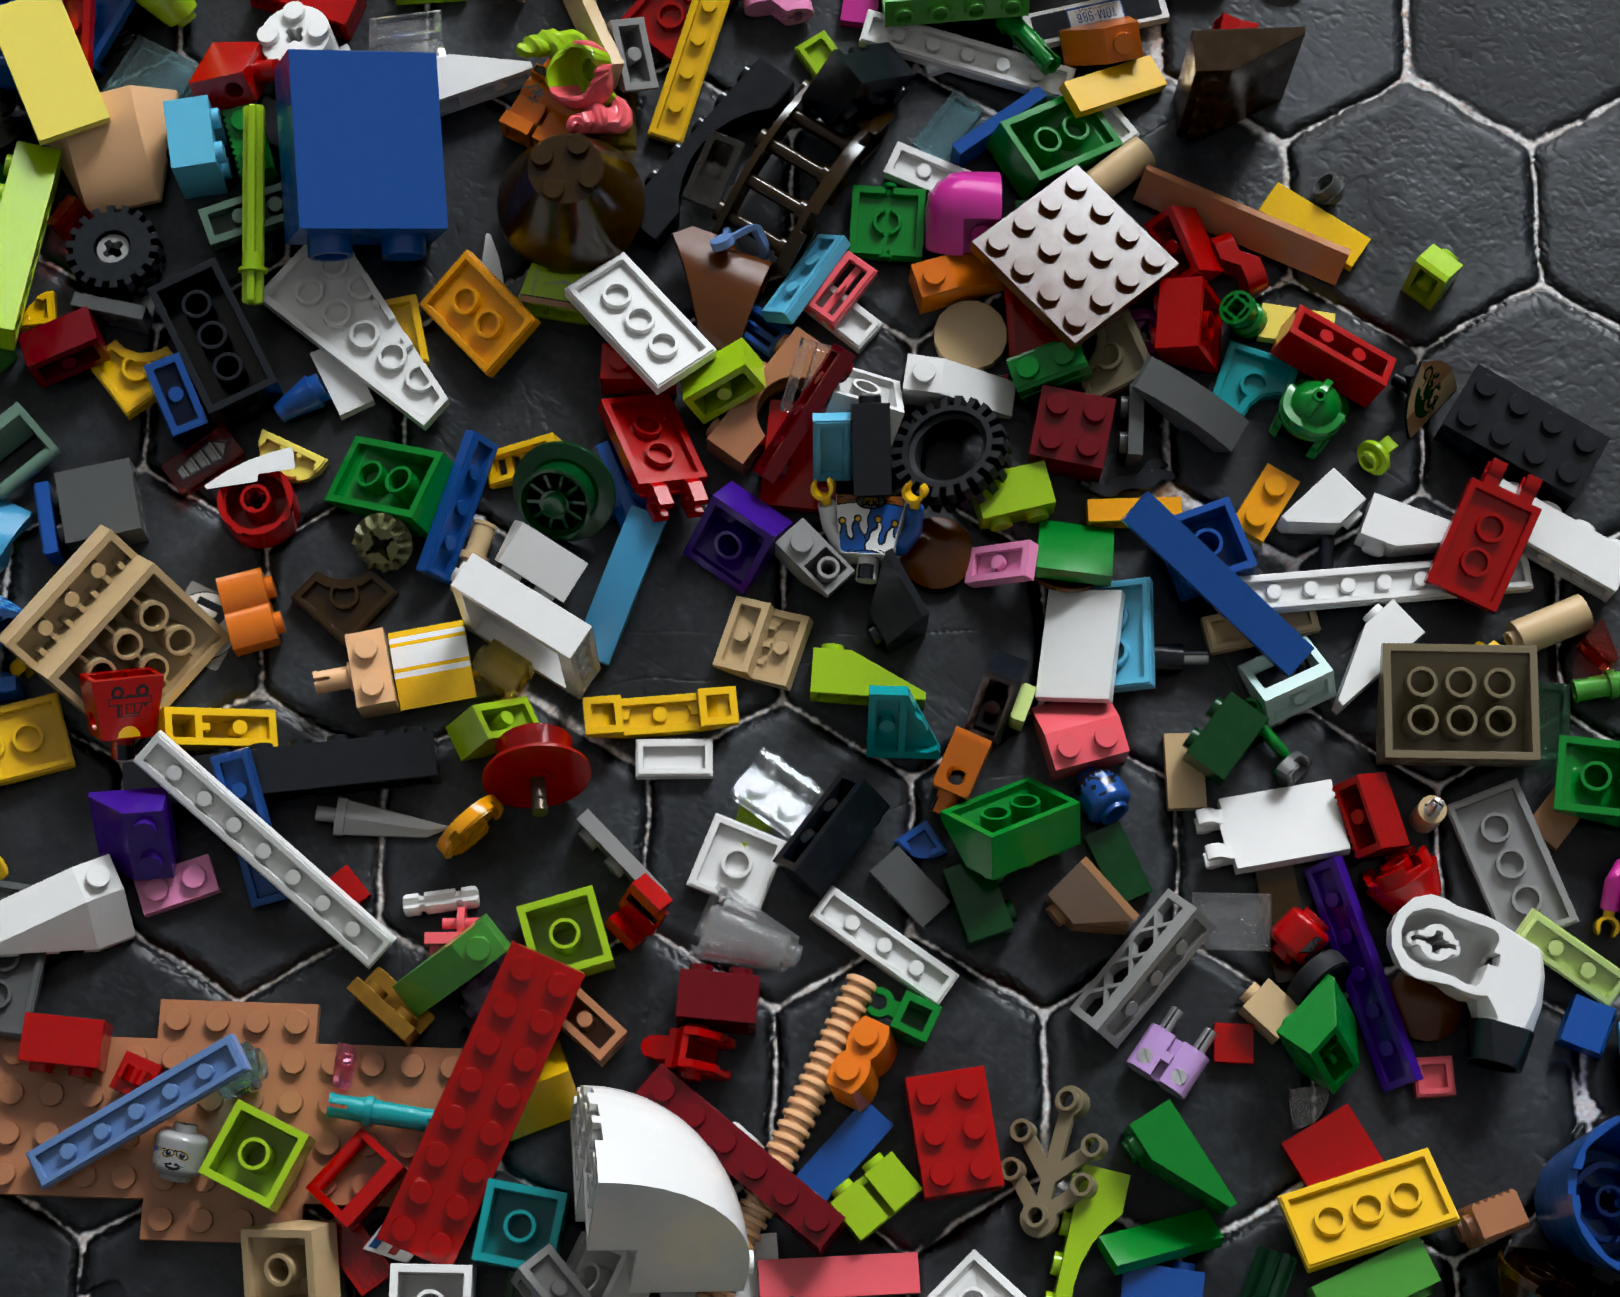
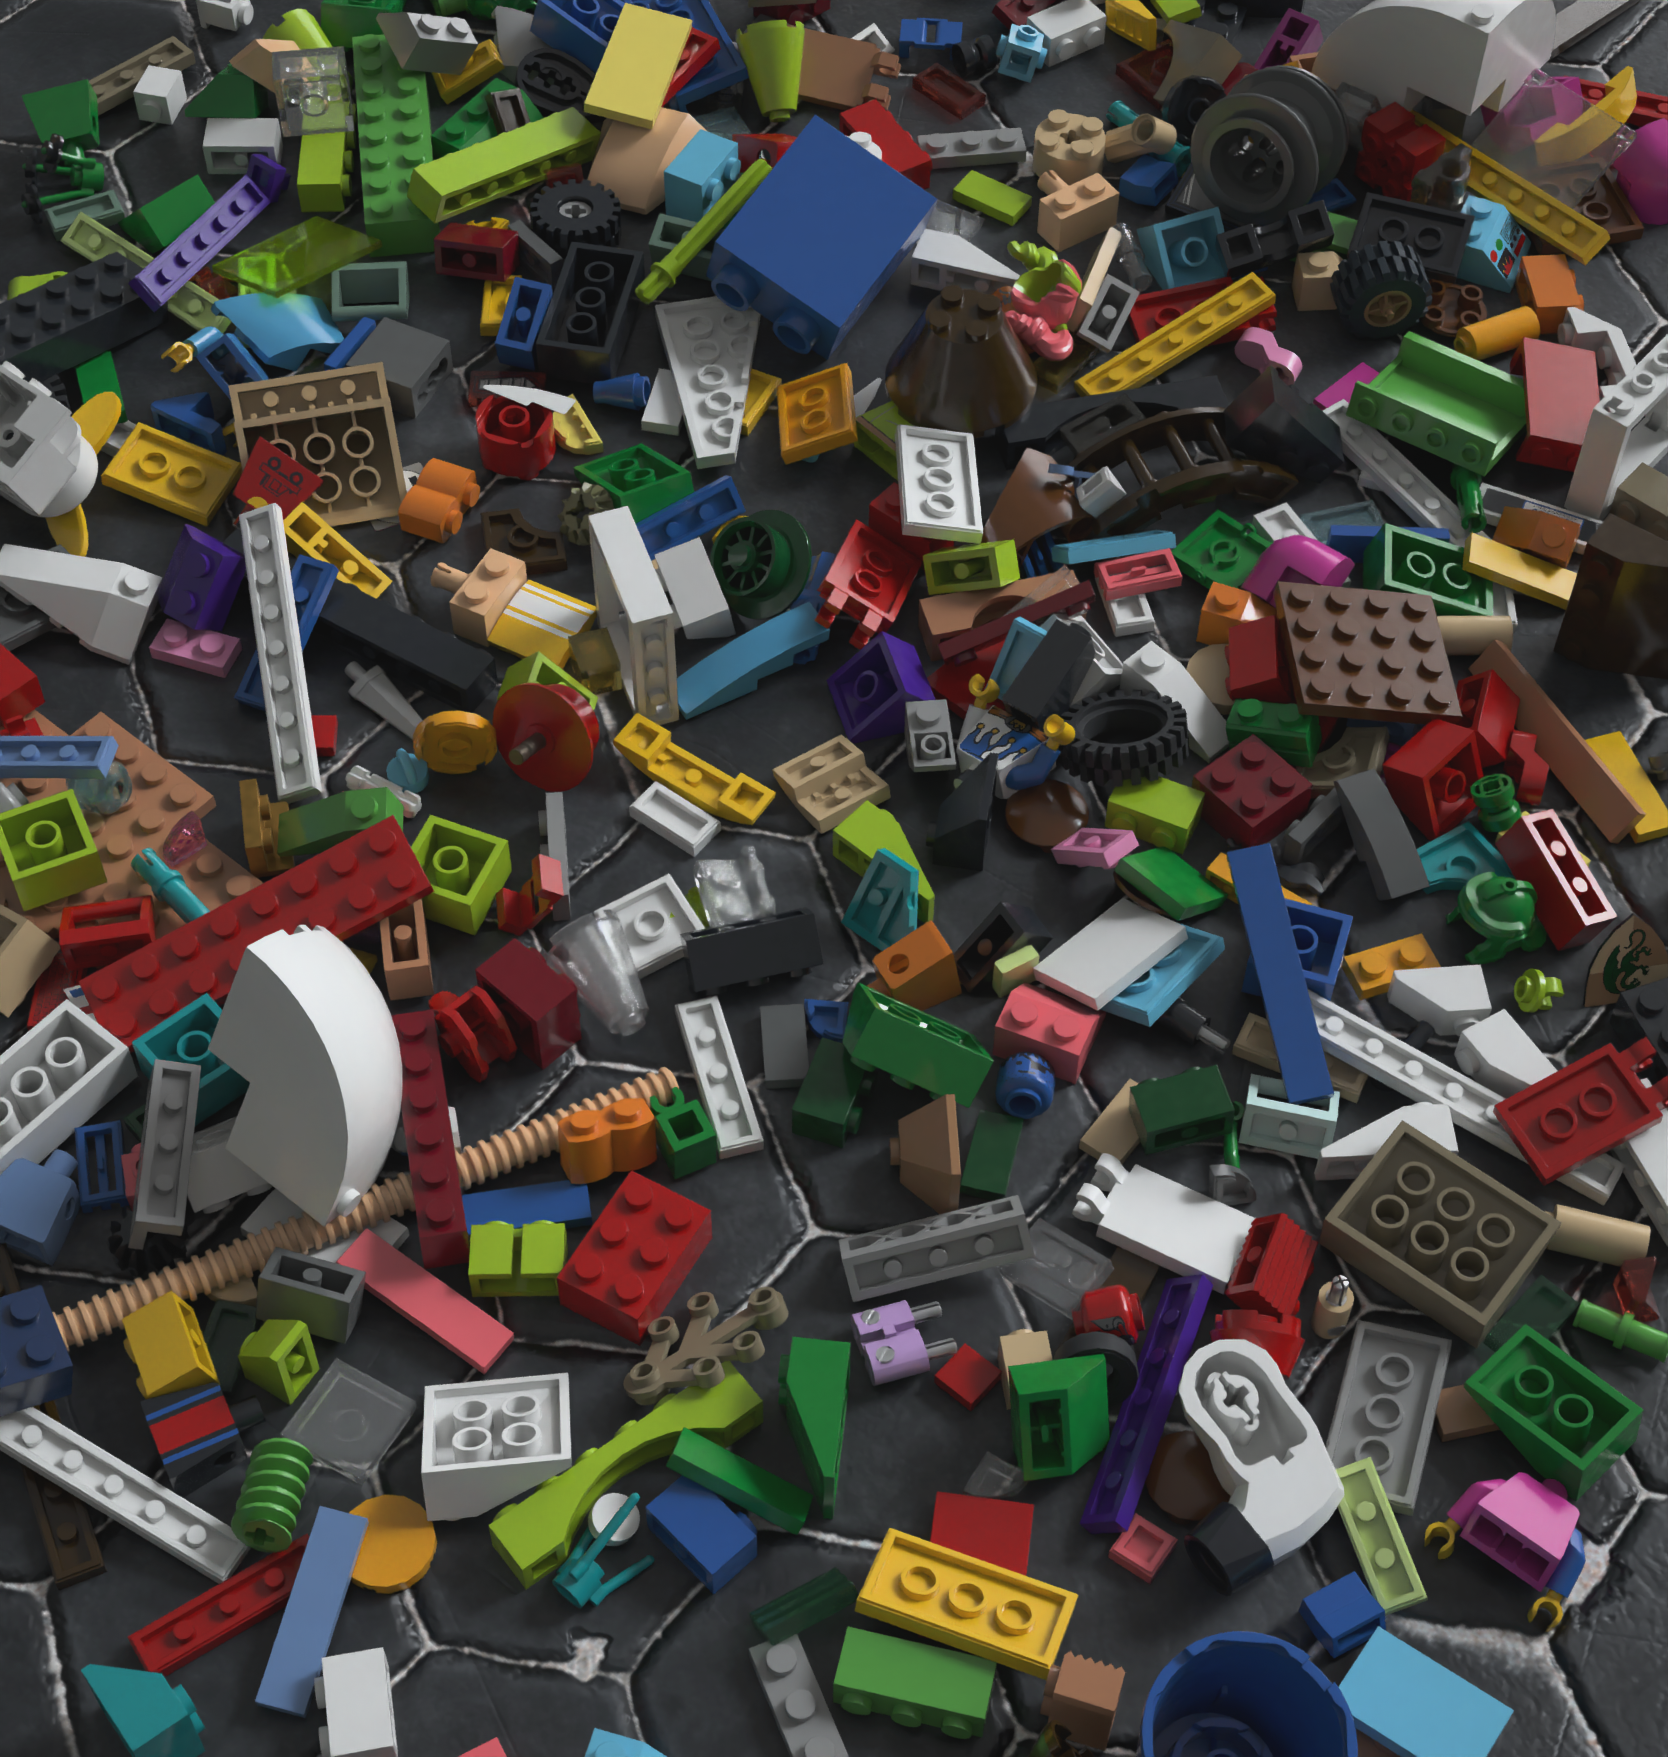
camera: 40 degrees right, 20 degrees down
(444, 872) = (408, 771): none -> medium azure tile
(764, 240) = (1099, 492): none -> white slope
(998, 318) = (1258, 662): none -> red brick

